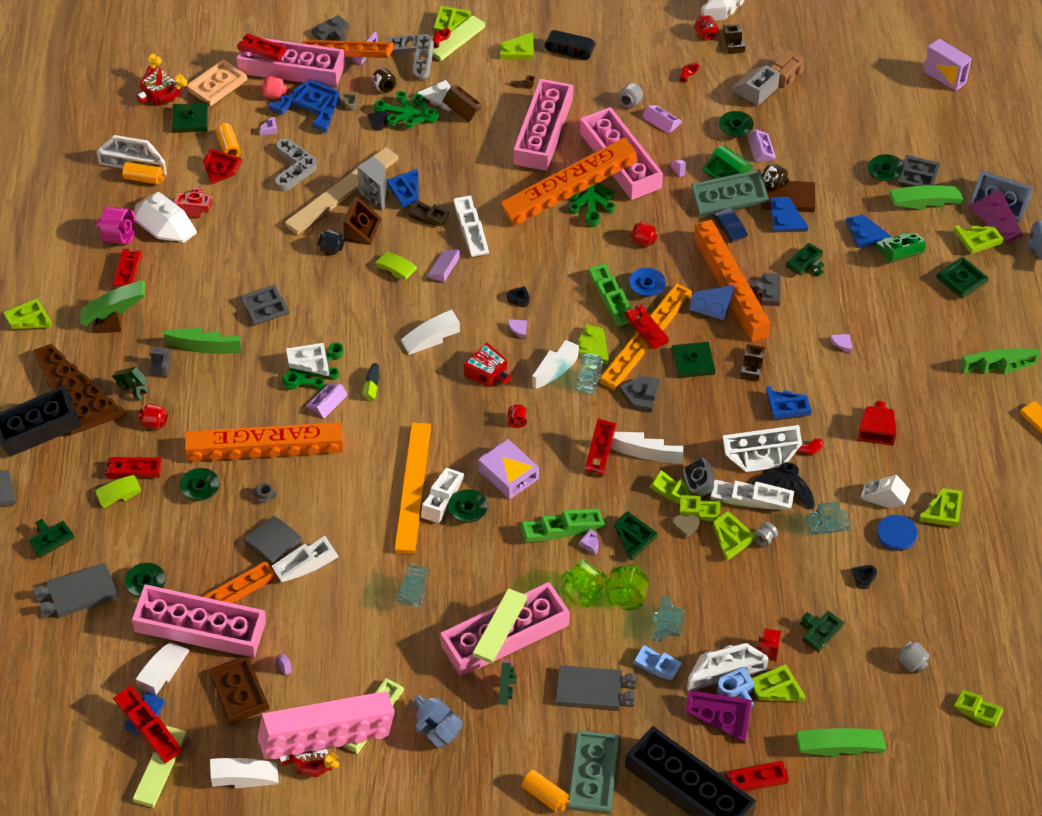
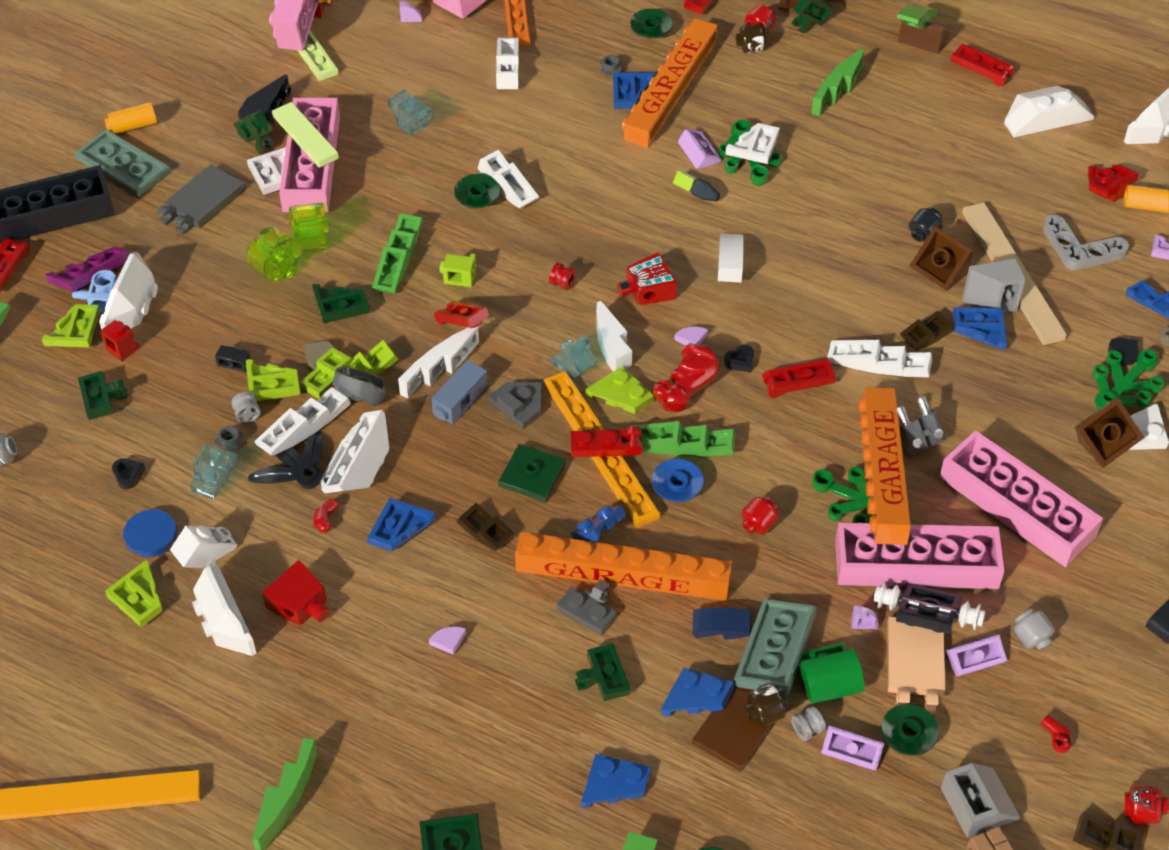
camera: 120 degrees right, 0 degrees up
(116, 225) = (1046, 64): dark pink brick -> none
(142, 173) = (1127, 114): light orange brick -> none
(161, 362) = (829, 50): flat silver panel -> none
(181, 411) = (751, 38): none -> dark brown head
(194, 202) = (1060, 141): red plate -> none
(264, 305) = (864, 148): dark grey slope -> none
(273, 539) = (549, 50): dark grey slope -> none
(288, 466) = (629, 87): none -> blue wing
(396, 264) = (855, 267): lime slope -> none
(413, 489) = (540, 169): light orange tile -> none
(436, 721) = (261, 75): sand blue piece -> none
(444, 265) = (831, 312): lavender slope -> none
(469, 701) = (267, 99): none -> black slope
(508, 469) = (499, 240): lavender brick -> none
(516, 259) = (798, 377): none -> red plate
(519, 181) = (921, 431): none -> dark grey piece
(528, 82) = (1128, 528): reddish brown hand -> none
(534, 655) = (268, 170): none -> white wing
(553, 477) = (458, 269): none -> lime brick
(556, 307) = (694, 372): none -> red animal
(590, 542) = (361, 270): lavender tile -> none
(653, 136) = (929, 608): none -> black plate
(657, 664) = (186, 255): light blue slope -> none
(663, 422) = (459, 392): none -> sand blue brick
(667, 620) = (219, 279): clear light blue brick -> none
(688, 138) = (915, 663): none -> light nougat tile
(728, 570) = (232, 358): none -> black piece
(764, 161) = (808, 723): none -> light grey wheel
(794, 528) = (227, 433): none -> dark grey plate
(901, 247) = (551, 796): green brick -> none
(920, 456) = (220, 611): none -> white wedge

